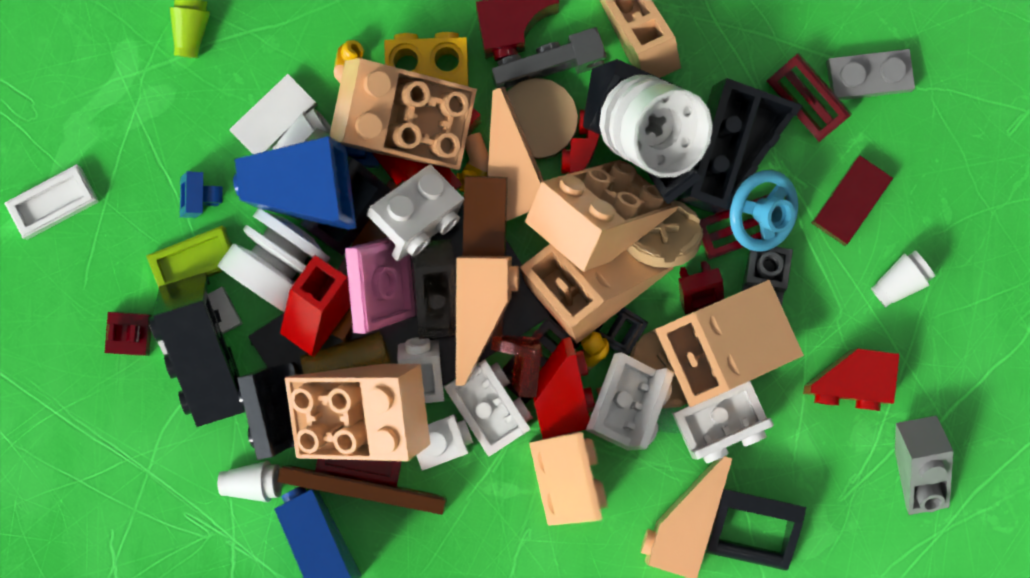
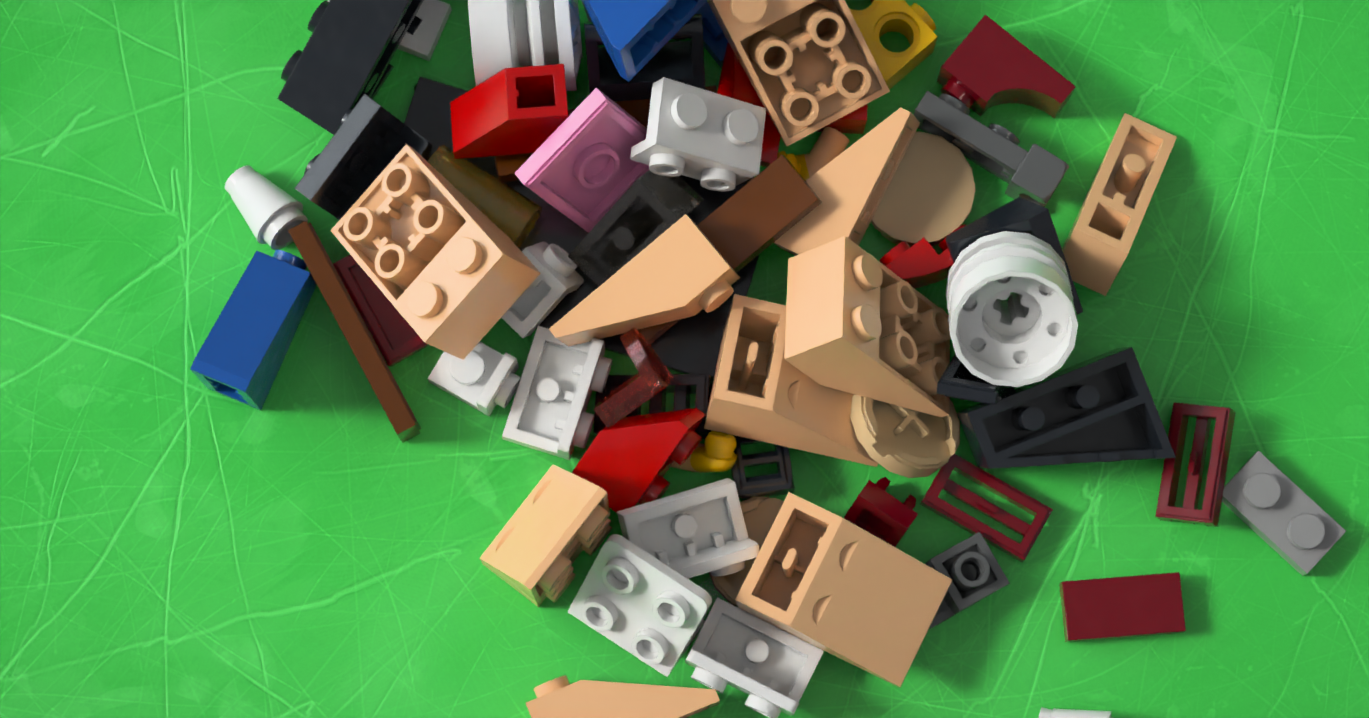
camera: 50 degrees right, 5 degrees down
(648, 460) = (641, 604): none -> white bracket
(773, 213) = (1033, 537): medium azure piece -> none

